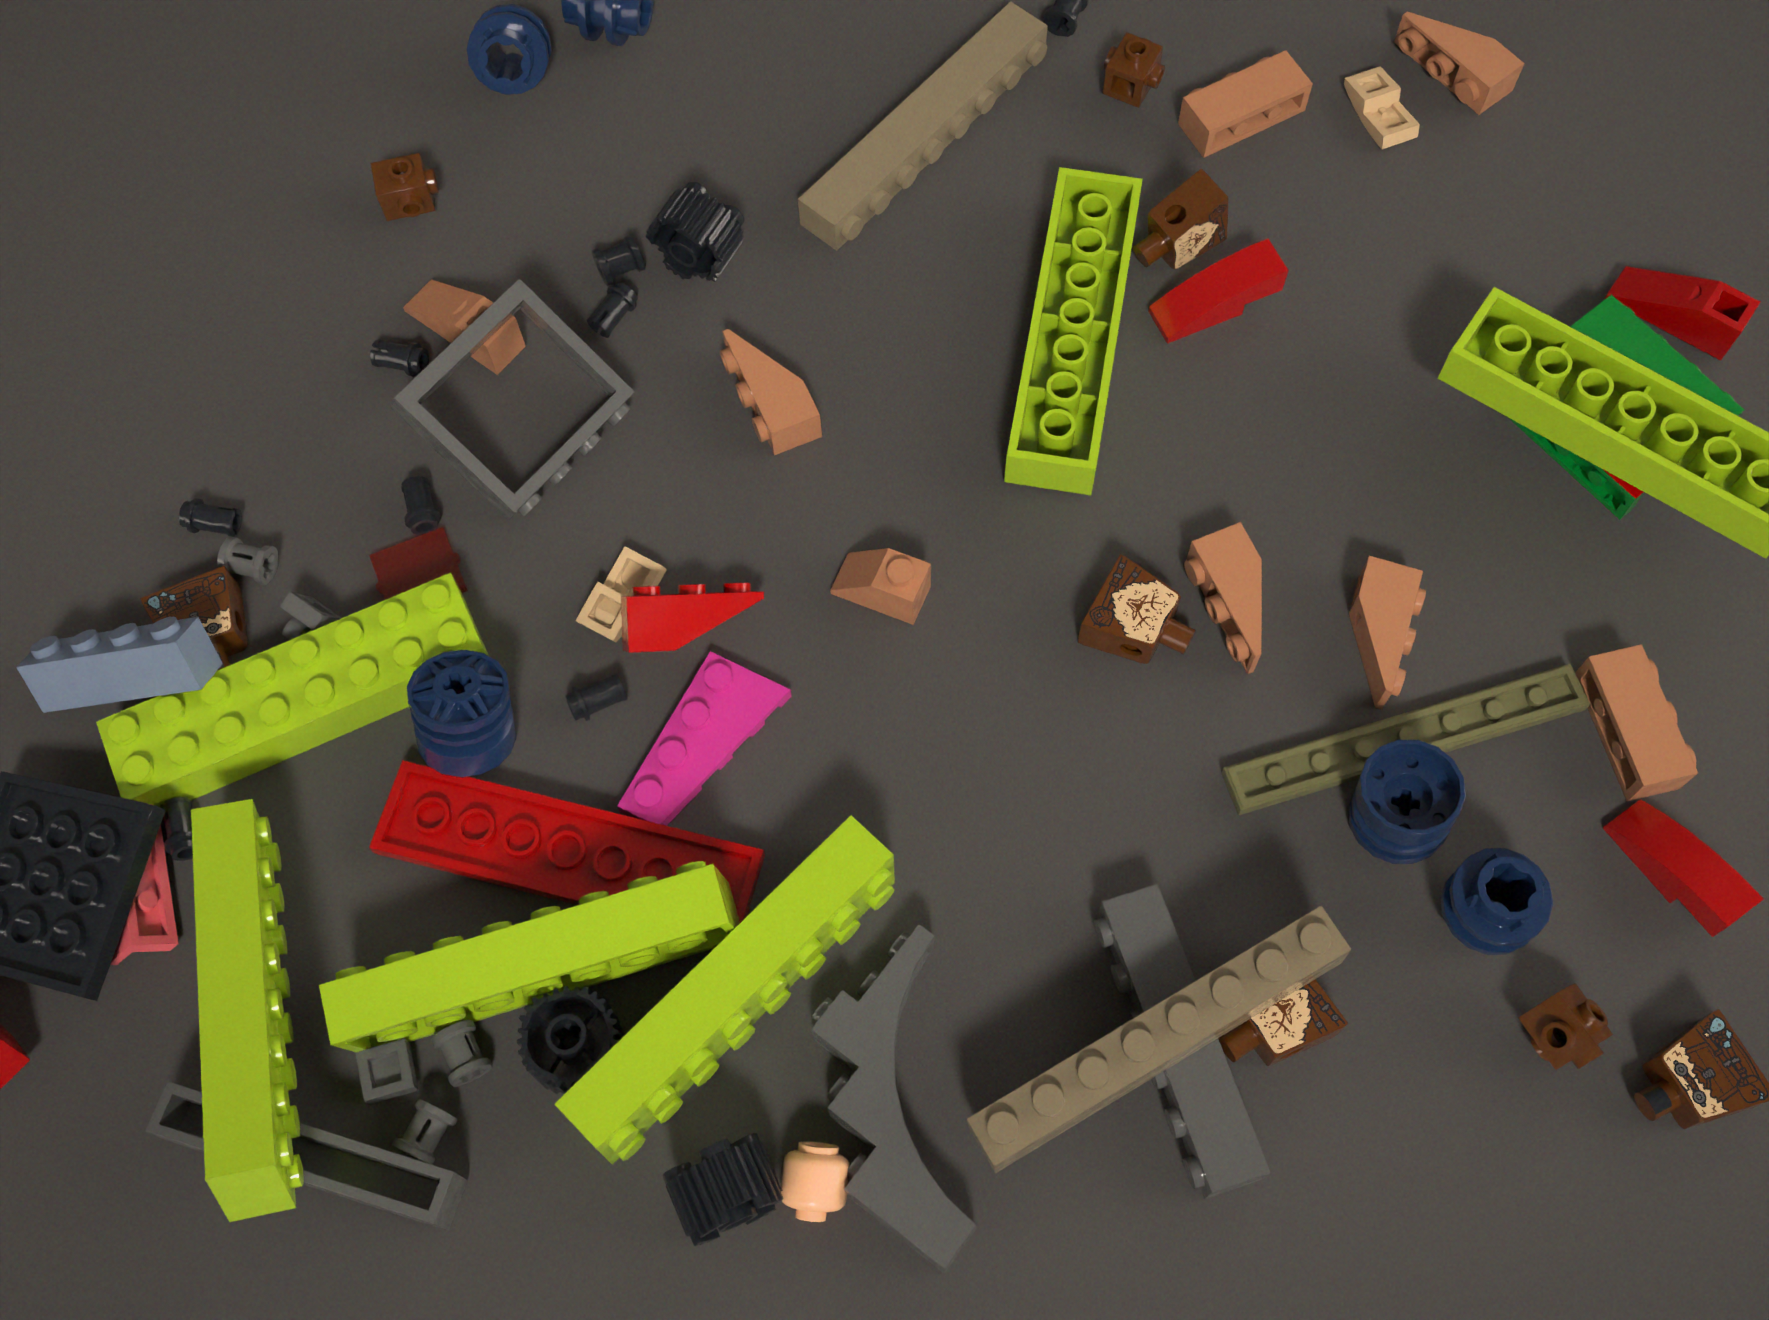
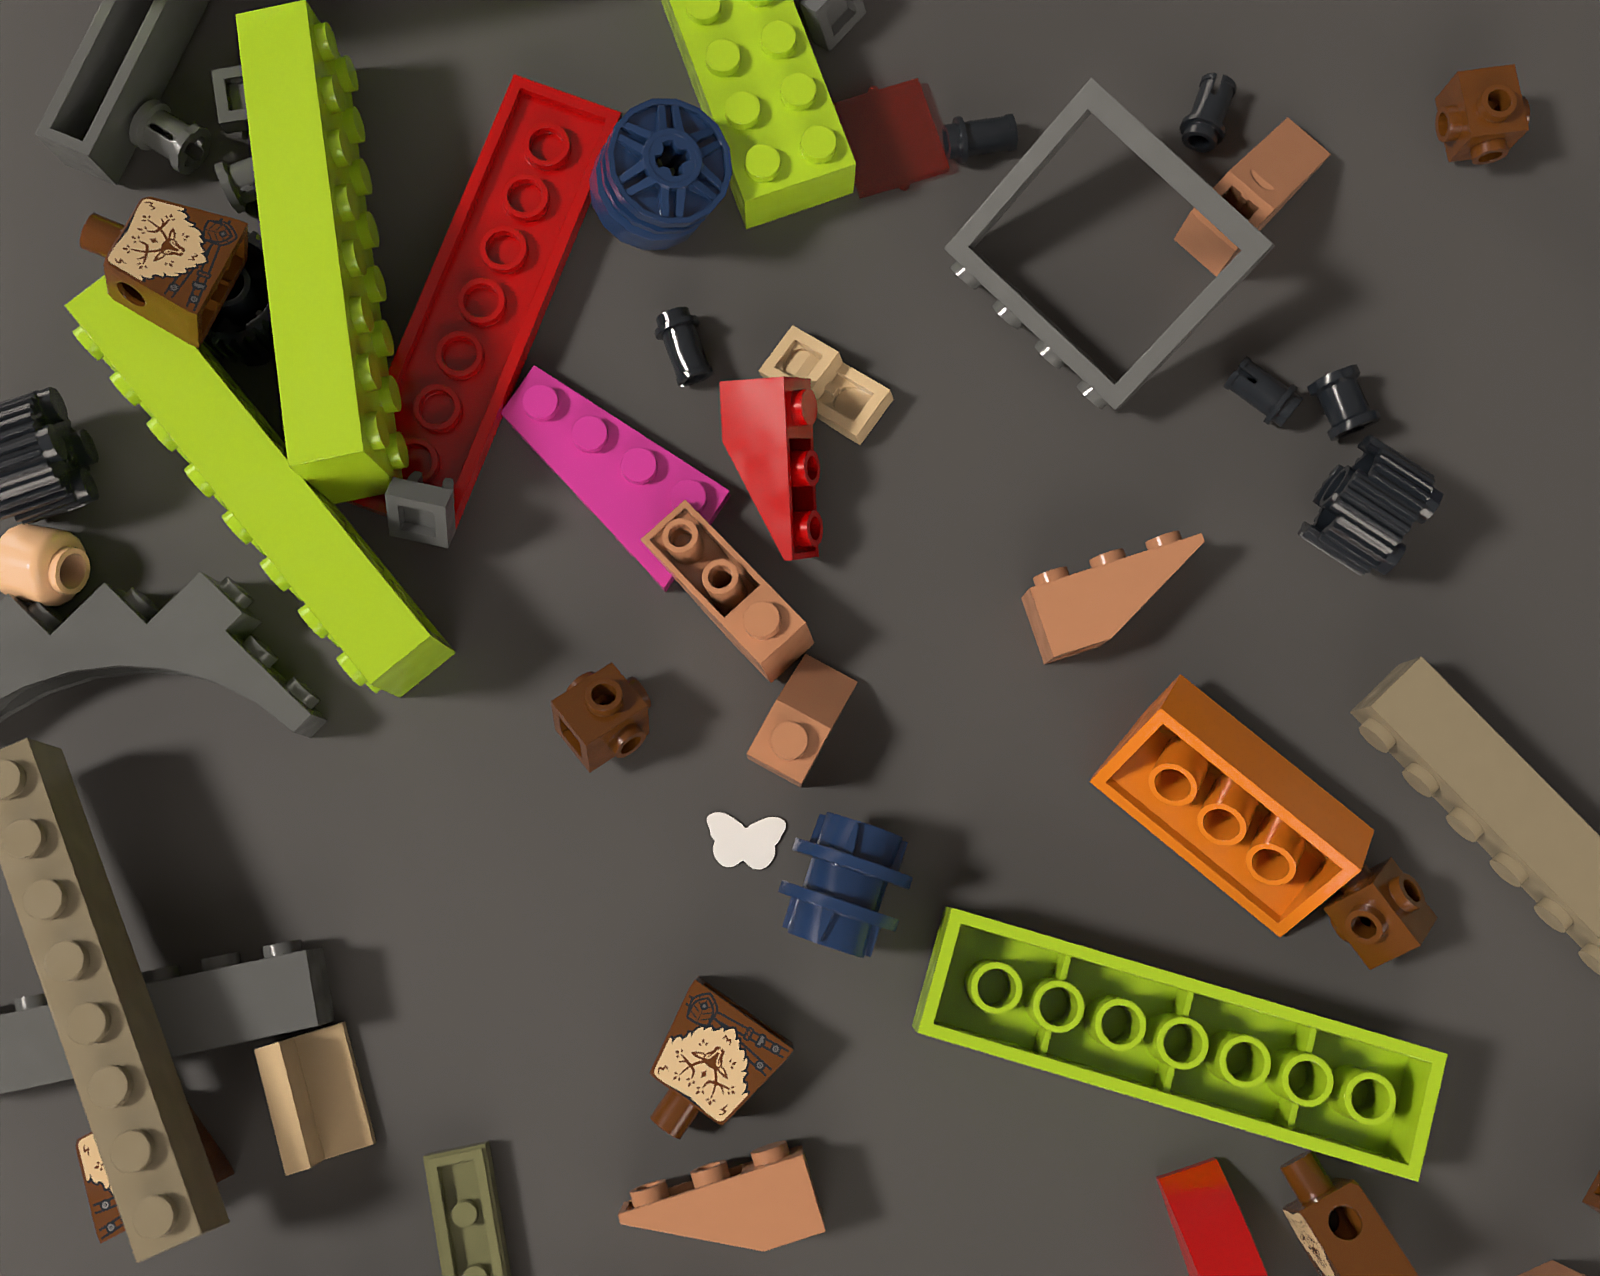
camera: 90 degrees right, 15 degrees up
(561, 1053) = (170, 263): none -> torso
(747, 857) = (421, 510): none -> dark grey tile
(790, 636) = (729, 591): none -> nougat slope
(895, 714) = (602, 716): none -> reddish brown brick
(911, 309) = (1234, 807): none -> orange slope
(972, 217) = (1381, 913): none -> reddish brown brick
(977, 620) = (750, 844): none -> white sticker
(998, 532) = (845, 884): none -> dark blue piece
(1213, 895) = (314, 1097): none -> tan panel

